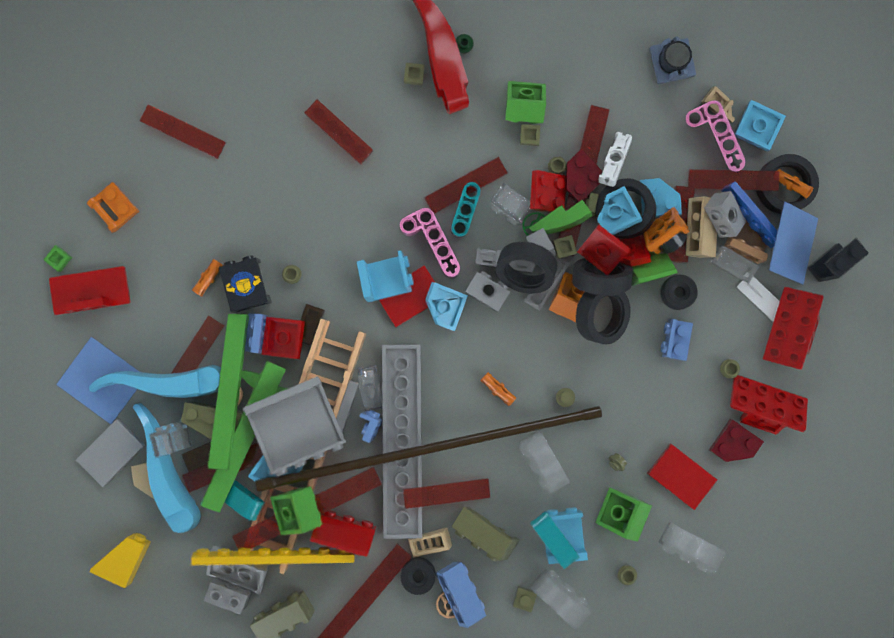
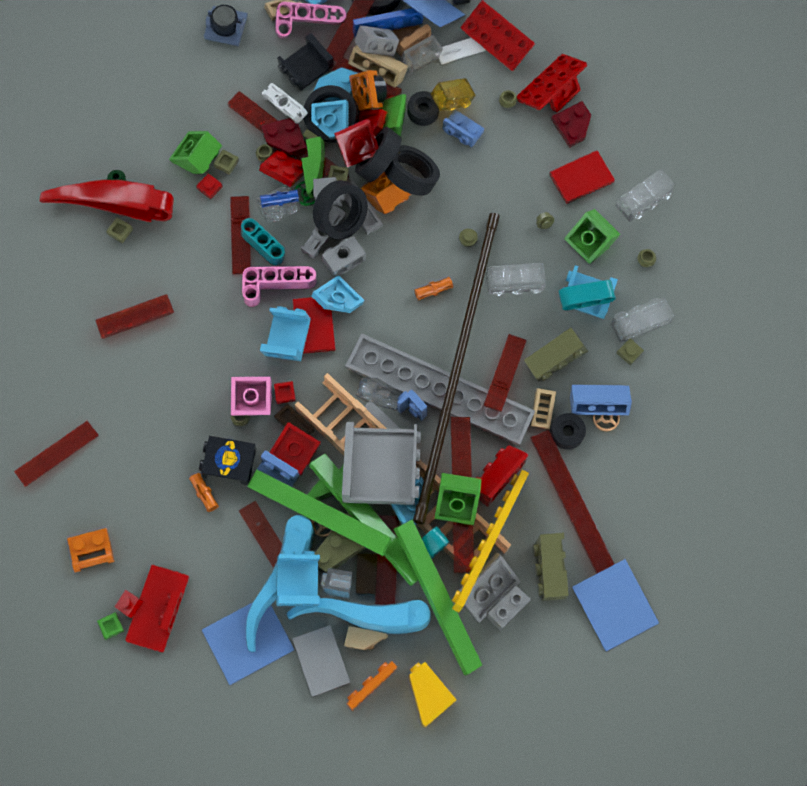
camera: 75 degrees left, 15 degrees down
(80, 264) = (128, 604): none -> red plate
(107, 506) = (370, 685): none -> orange plate
(154, 404) = (297, 579): none -> medium azure panel
(204, 530) = (438, 597): none -> bright green tile
(309, 276) = (251, 396): none -> bright pink slope
(332, 302) = (284, 392): none -> red plate
(499, 132) = (209, 186): none -> red plate
(511, 204) = (279, 198): none -> blue pin
(670, 157) = (306, 63): none -> black panel
(705, 315) = (453, 94): none -> clear yellow piece

